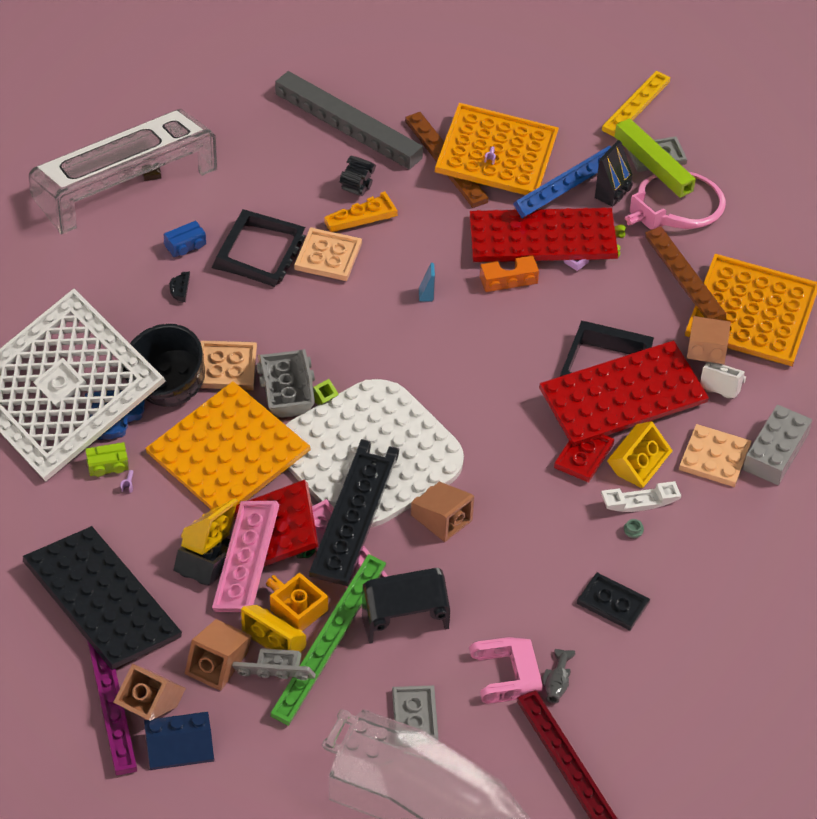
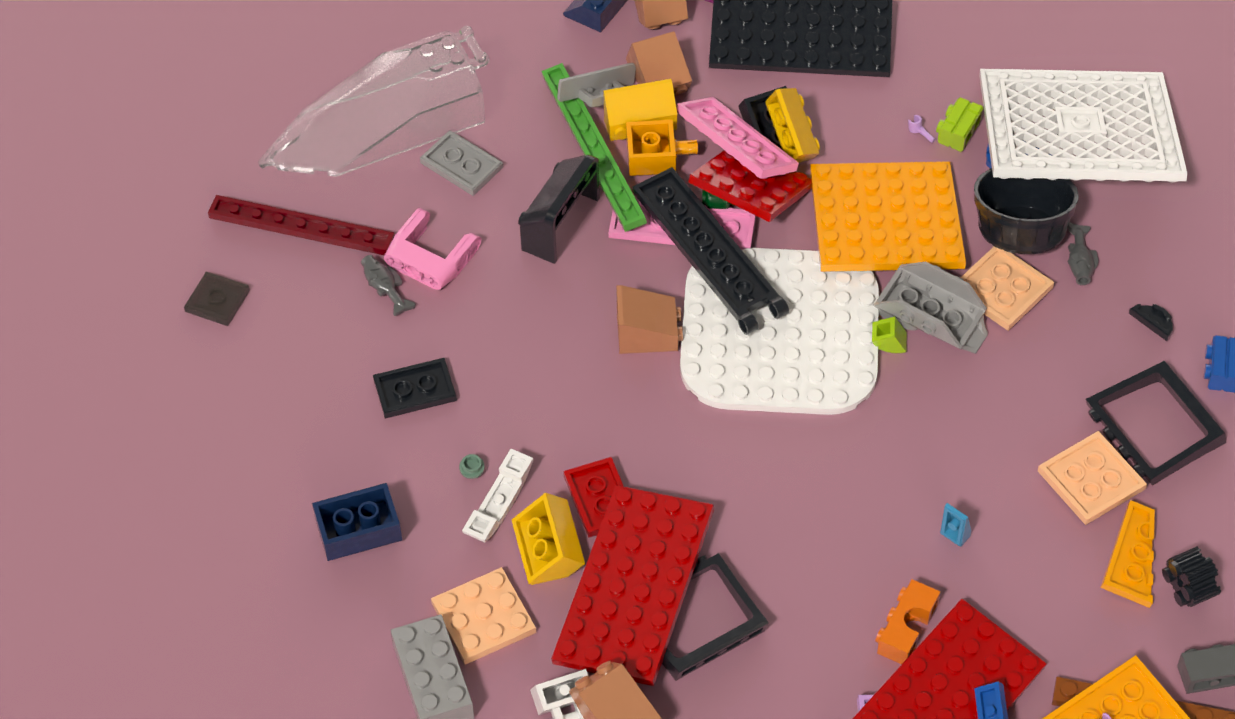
camera: 135 degrees right, 5 degrees up
(672, 764) = (217, 298): none -> clear smoke tile
(736, 545) = (357, 521): none -> dark blue brick

